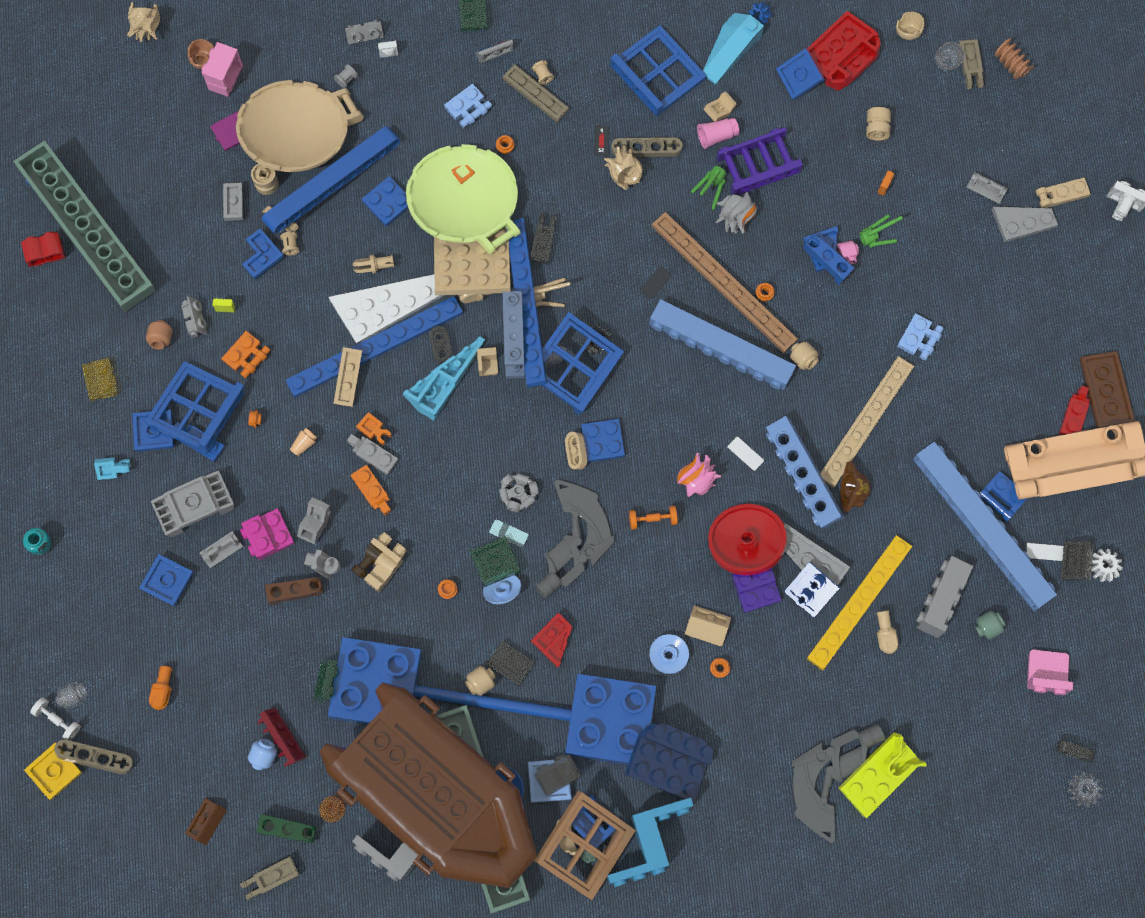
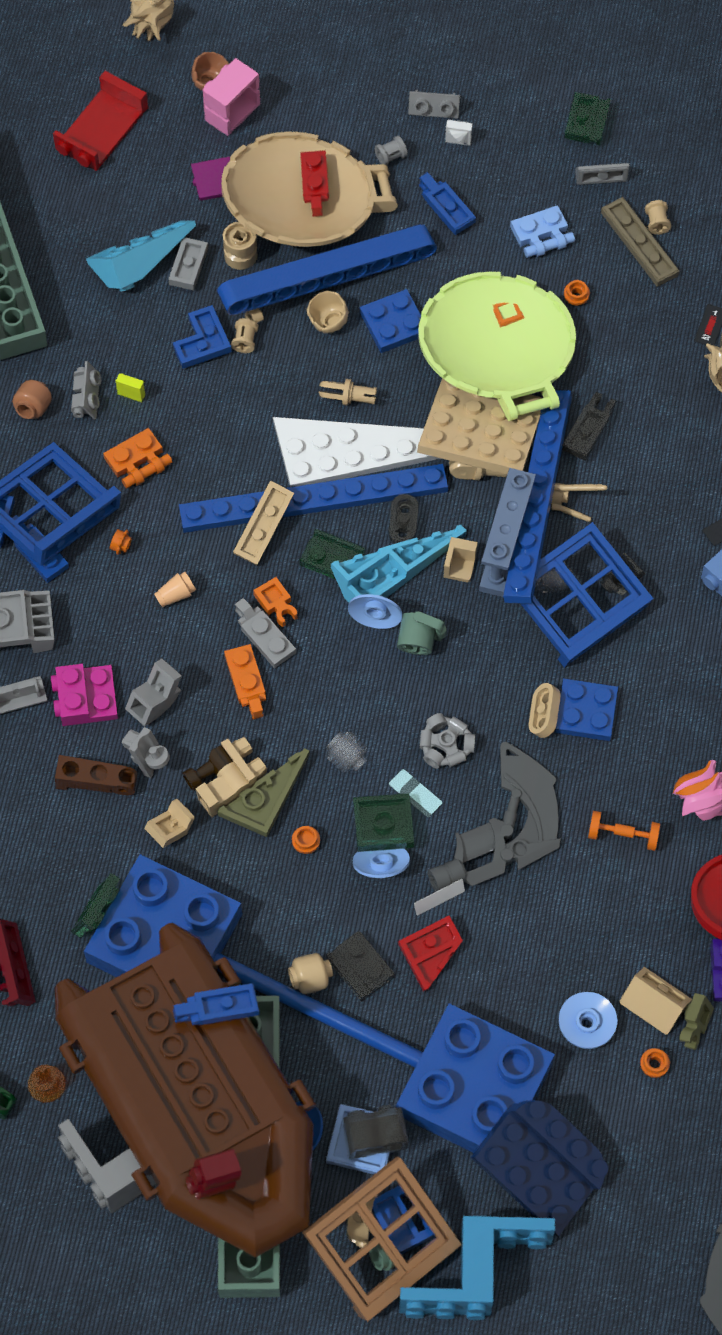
camera: 20 degrees right, 10 degrees down
(137, 113) = (103, 122): none -> red panel
(194, 212) = (131, 263): none -> medium azure wedge
(300, 114) = (315, 179): none -> red hinge
(341, 209) = (328, 312): none -> tan hair
(355, 607) = (170, 824): none -> tan bracket
(396, 105) = (446, 204): none -> blue hinge
(396, 382) = (326, 549): none -> clear green plate
(410, 574) = (261, 804): none -> olive wing
(433, 733) = (218, 1005): none -> blue hinge
(443, 417) = (375, 611): none -> light blue dish
(455, 520) = (346, 751): none -> clear head
(468, 850) = (214, 1174): none -> dark red brick
(476, 423) = (419, 632): none -> sand green piece
(547, 601) = (439, 897): none -> white sticker
(738, 630) = (697, 1017): none -> olive plate

